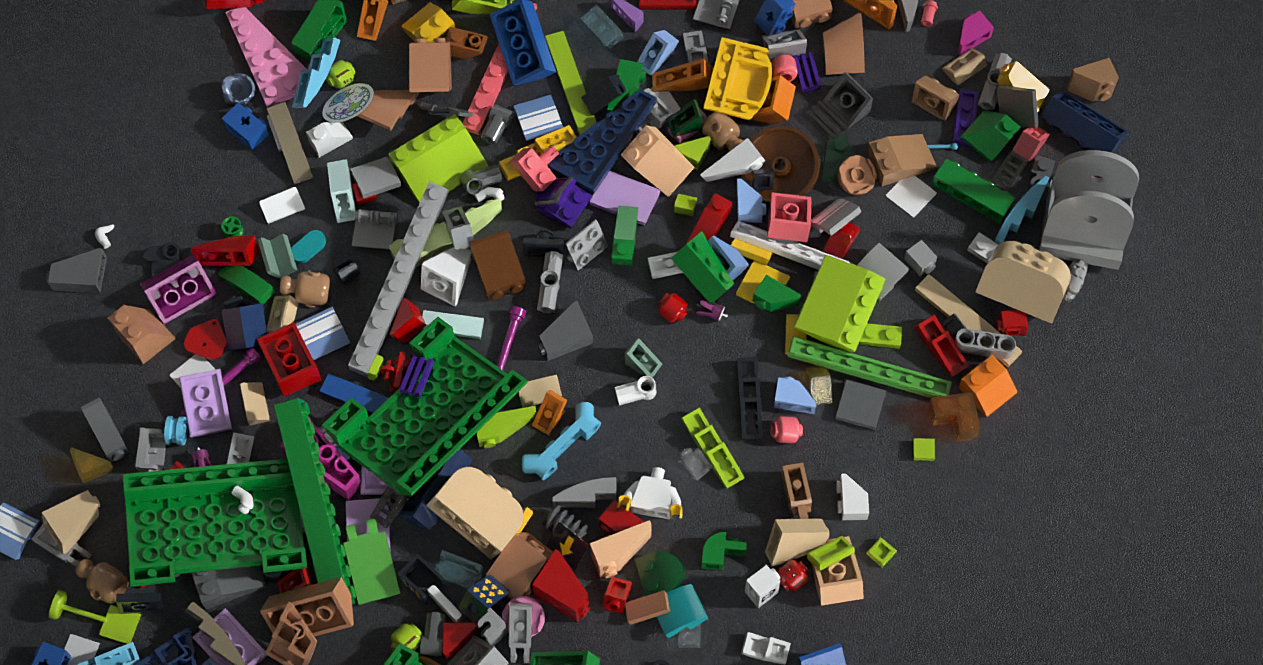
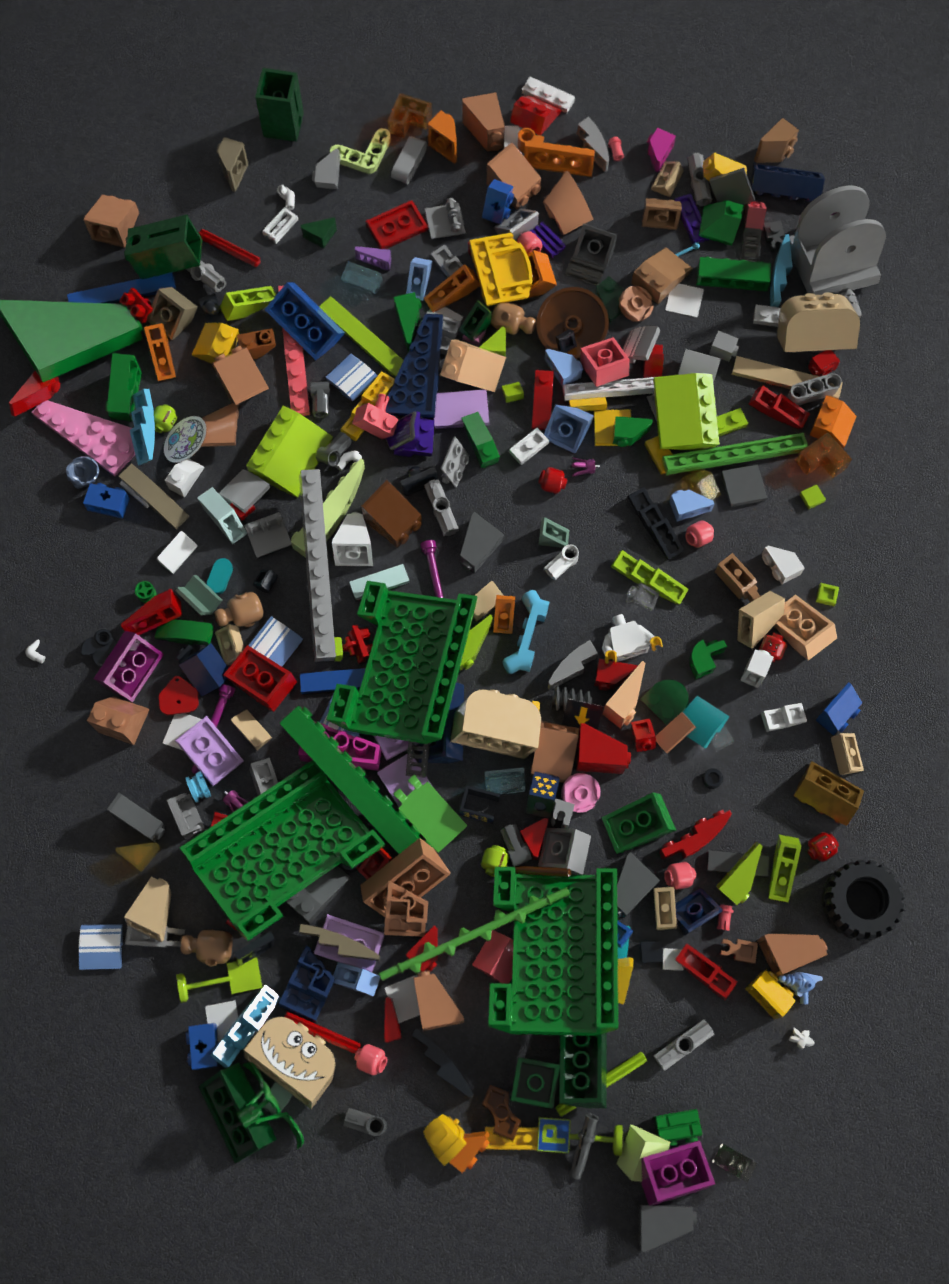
camera: 30 degrees left, 5 degrees up
(78, 273) = (32, 695): dark grey slope -> none
(245, 499) = (294, 813): white arm -> none
(407, 322) = (342, 598): red slope -> none
(414, 361) = (375, 625): dark purple tile -> none
(434, 109) = (260, 410): dark grey piece -> none
(445, 604) = (510, 815): white tile -> none
(458, 228) = (343, 498): dark grey slope -> none
(520, 629) = (586, 804): light grey hinge -> none
(603, 94) = (397, 332): black hinge -> none
(703, 268) = (562, 435): green wedge -> none
(738, 161) = (539, 335): white slope -> none
(830, 553) = (793, 614): lime tile -> none
(953, 325) = (780, 387): black tile -> none

